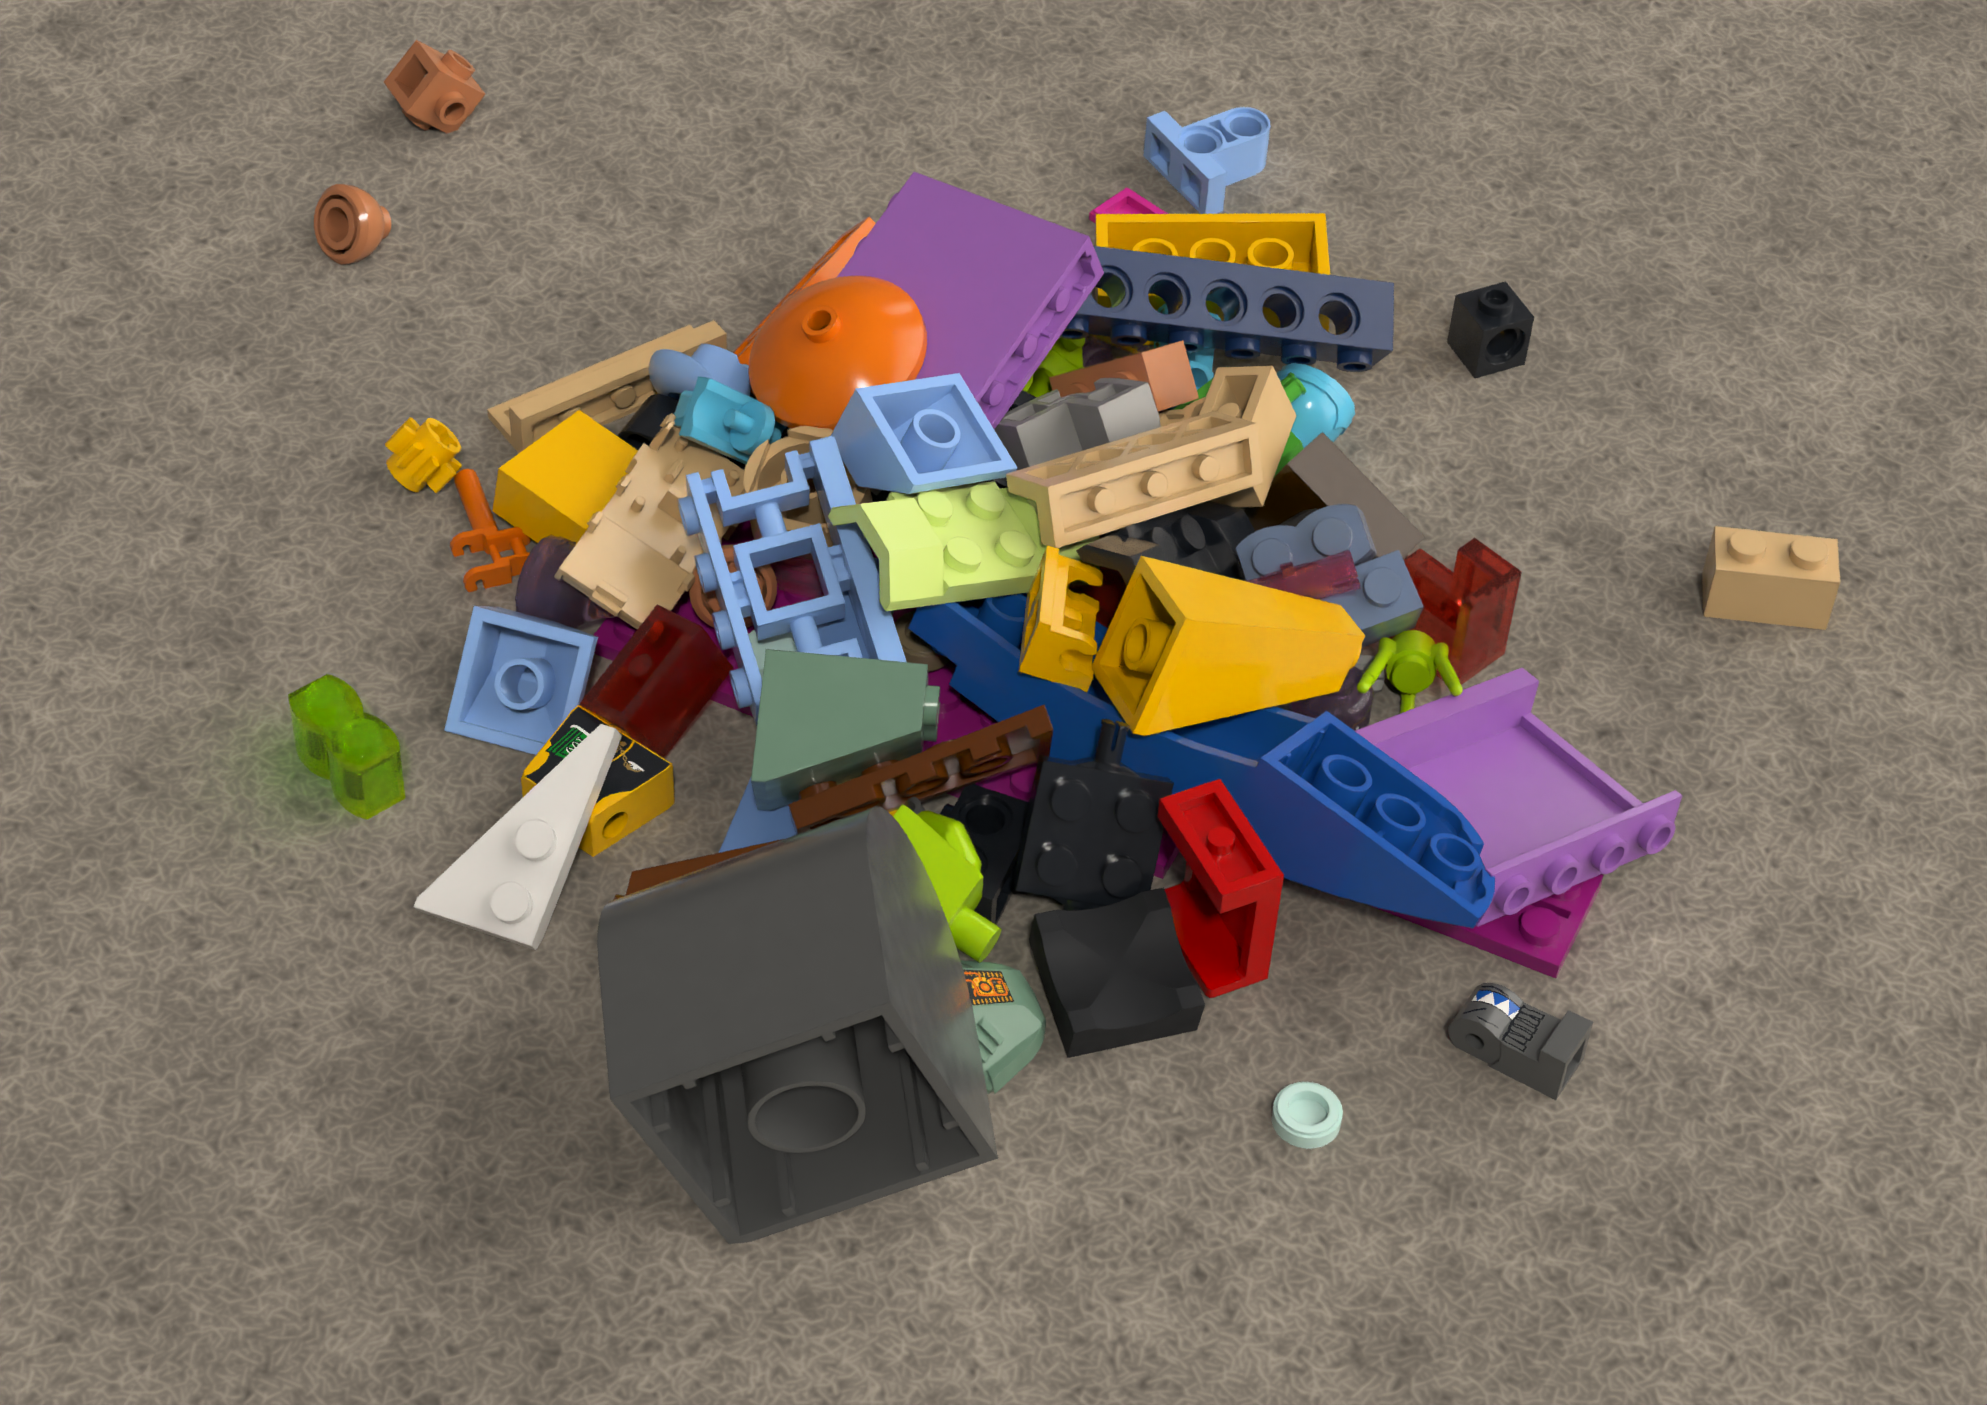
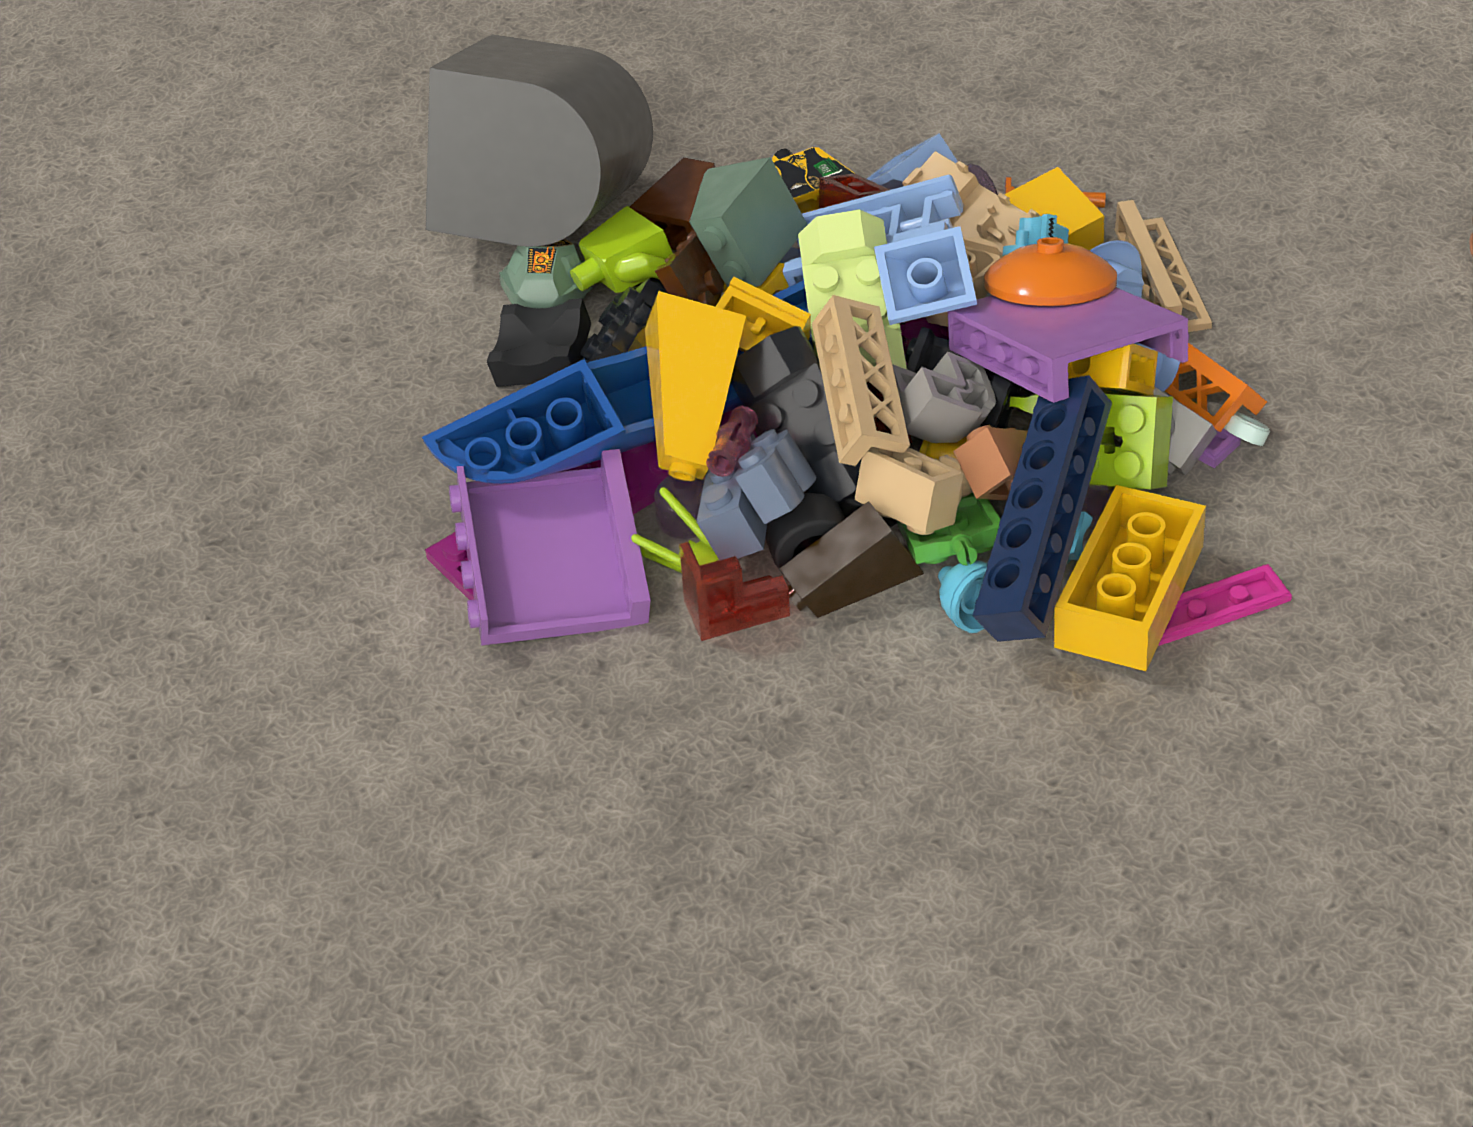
camera: 120 degrees right, 0 degrees up
(347, 746) = (885, 102): clear neon green brick -> none
(350, 222) = (1365, 185): nougat brick -> none
(423, 455) = (1128, 167): yellow gear -> none
(519, 866) = (761, 140): white wing -> none
(1208, 153) = (1304, 643): light blue tile -> none
(1229, 891) = (540, 347): red panel -> none
(1307, 1115) = (407, 409): light aqua tile -> none
(1490, 329) = (1016, 739): black brick -> none
(1521, 1038) = (384, 508): dark grey leg -> none
(1770, 577) = (667, 799): tan brick -> none

